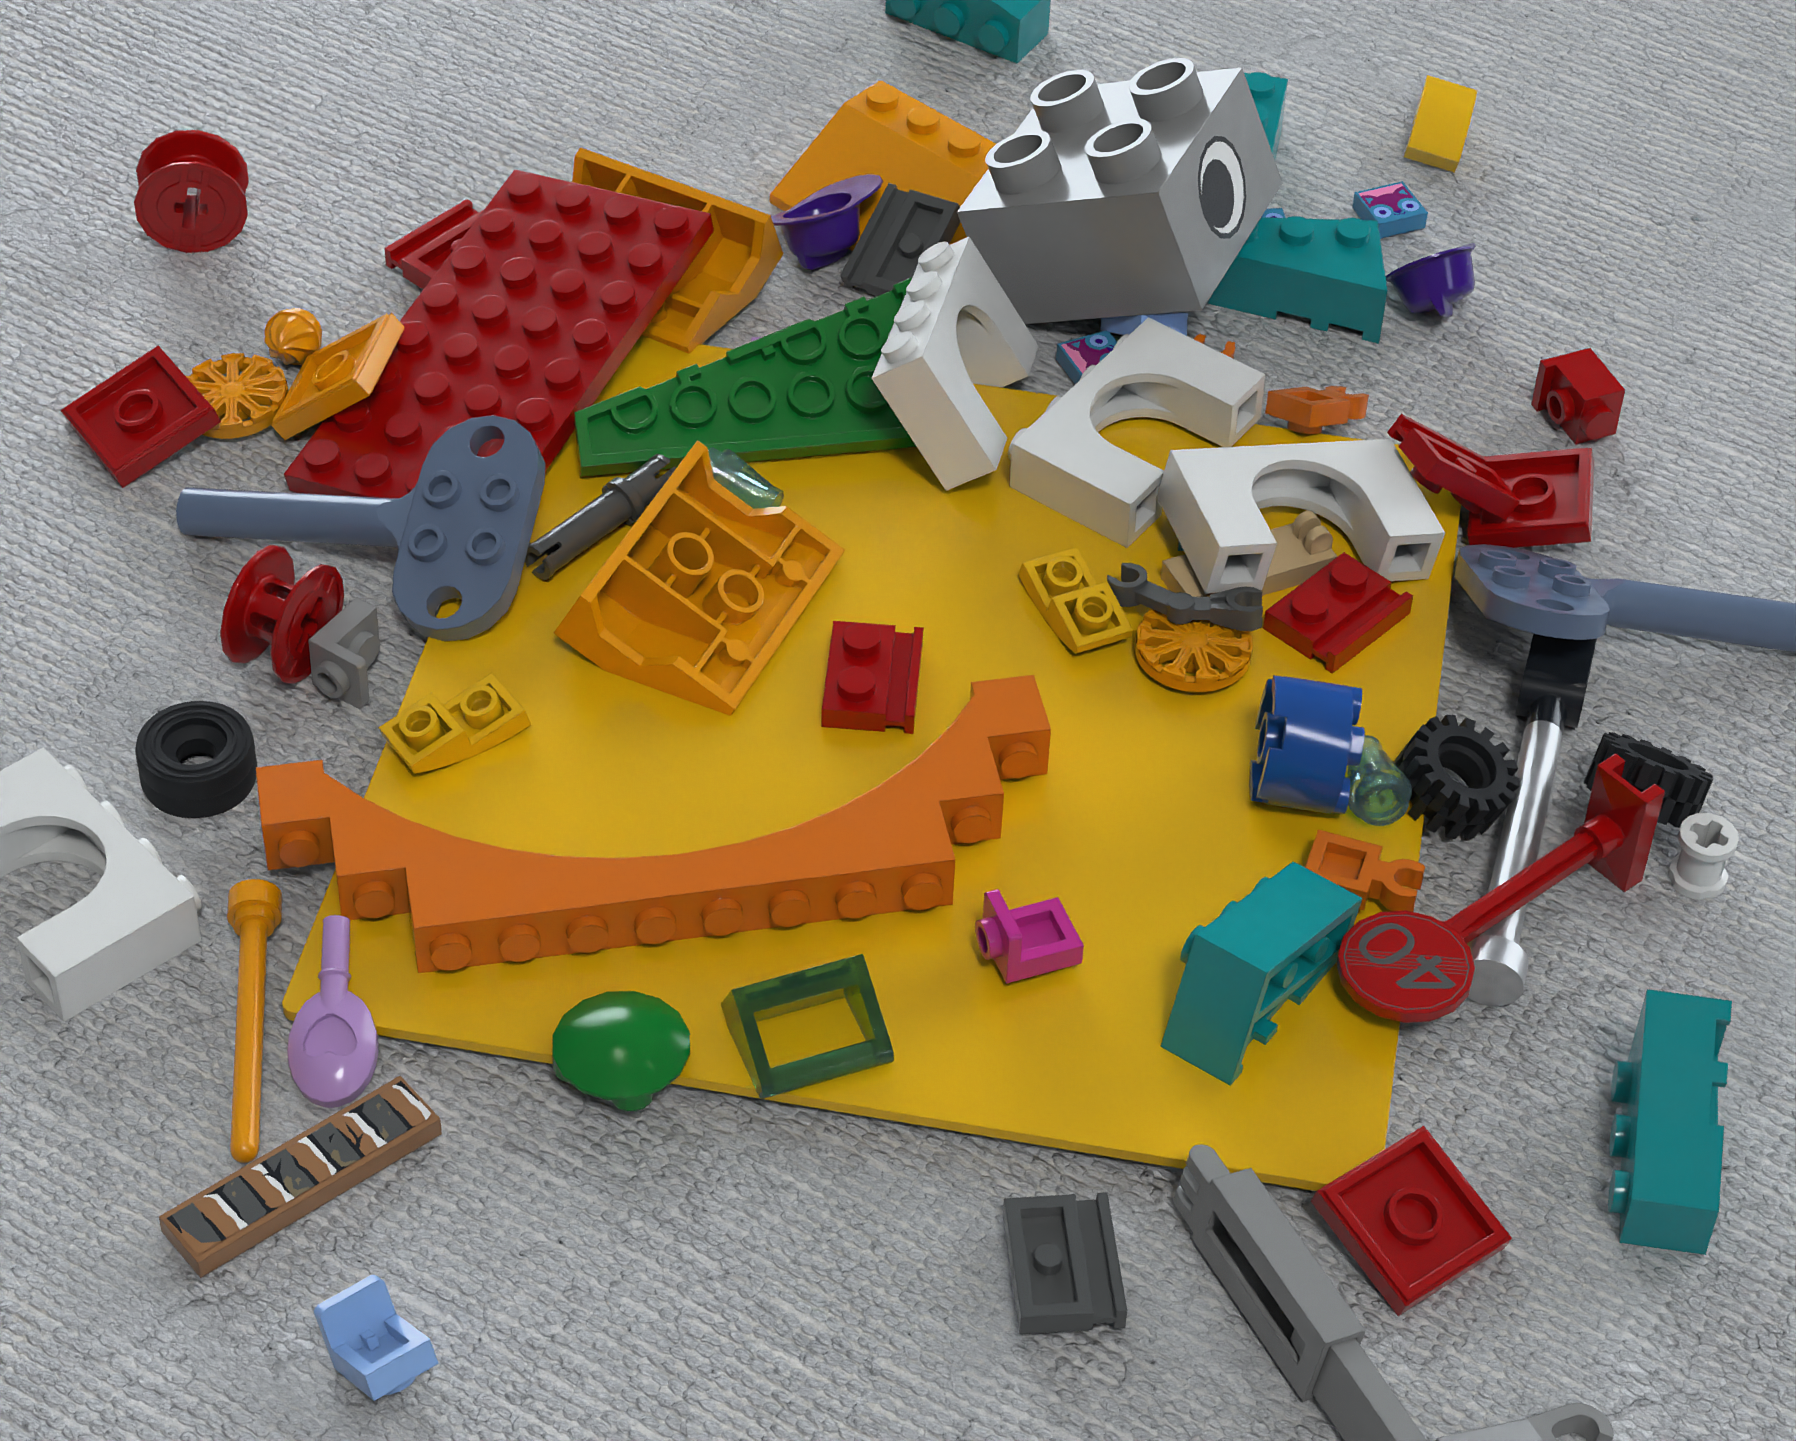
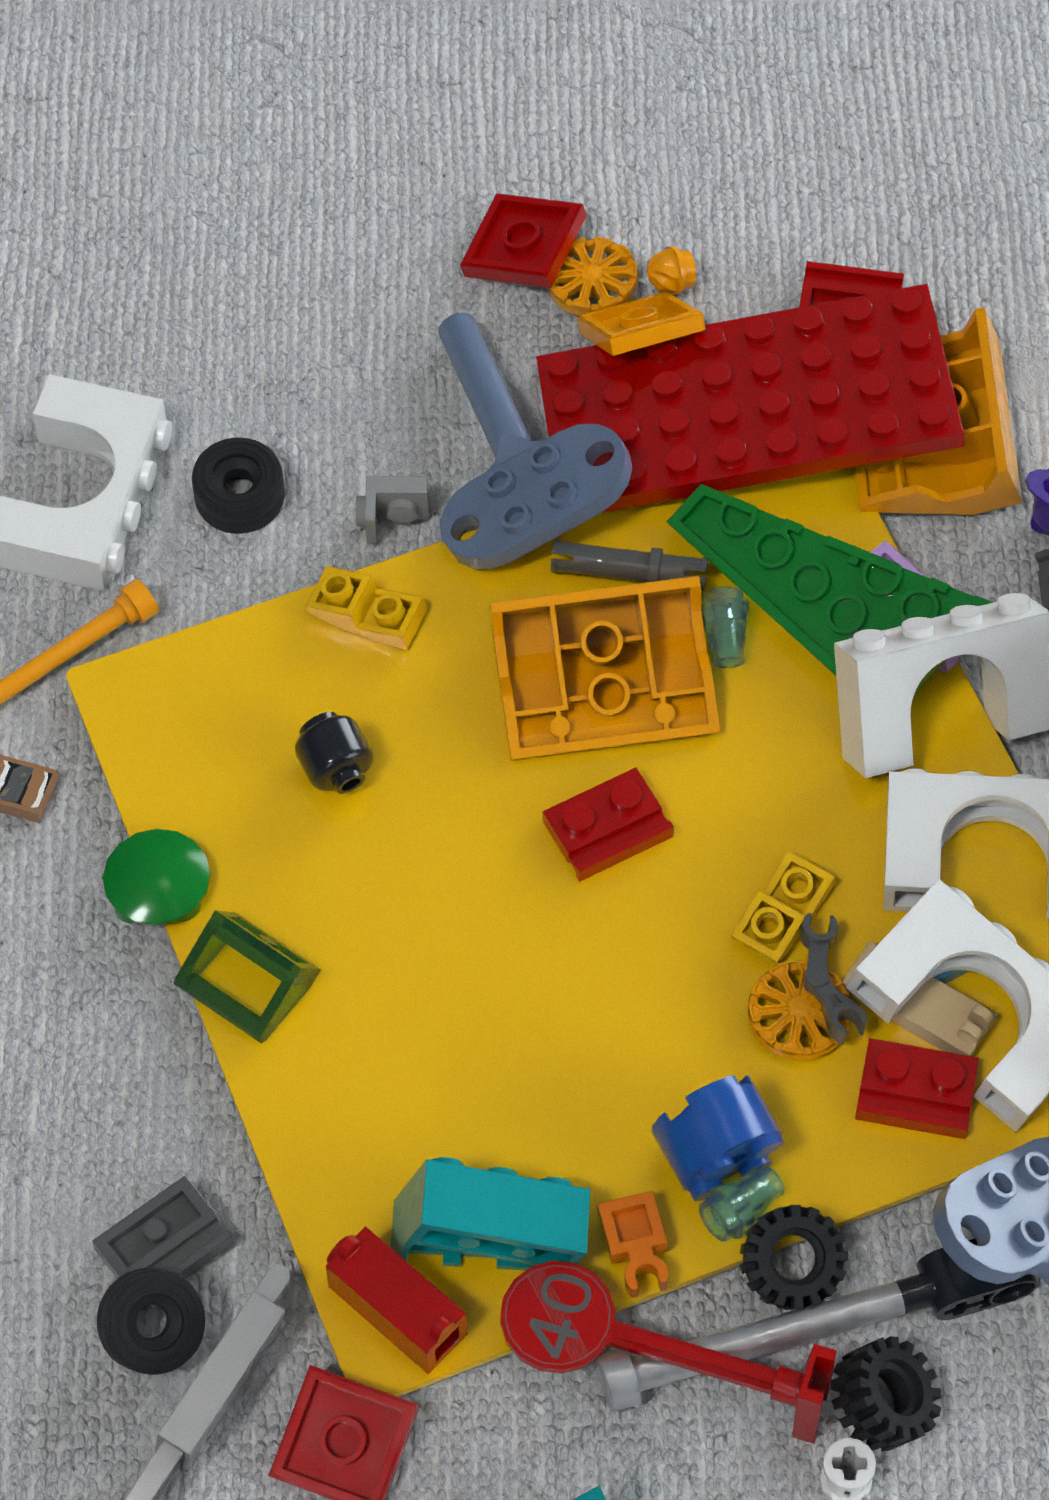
camera: 60 degrees right, 15 degrees up
(191, 161) = (757, 111): red piece -> none
(271, 610) = (359, 434): red piece -> none
(333, 1032) = (66, 710): lavender piece -> none
(510, 905) = (417, 920): orange arch -> none
(614, 819) = (333, 752): none -> black head
(1027, 938) = (413, 1059): dark pink bracket -> none
(1133, 1312) = (183, 1321): none -> black tyre
(1293, 1083) = (395, 1298): none -> red brick

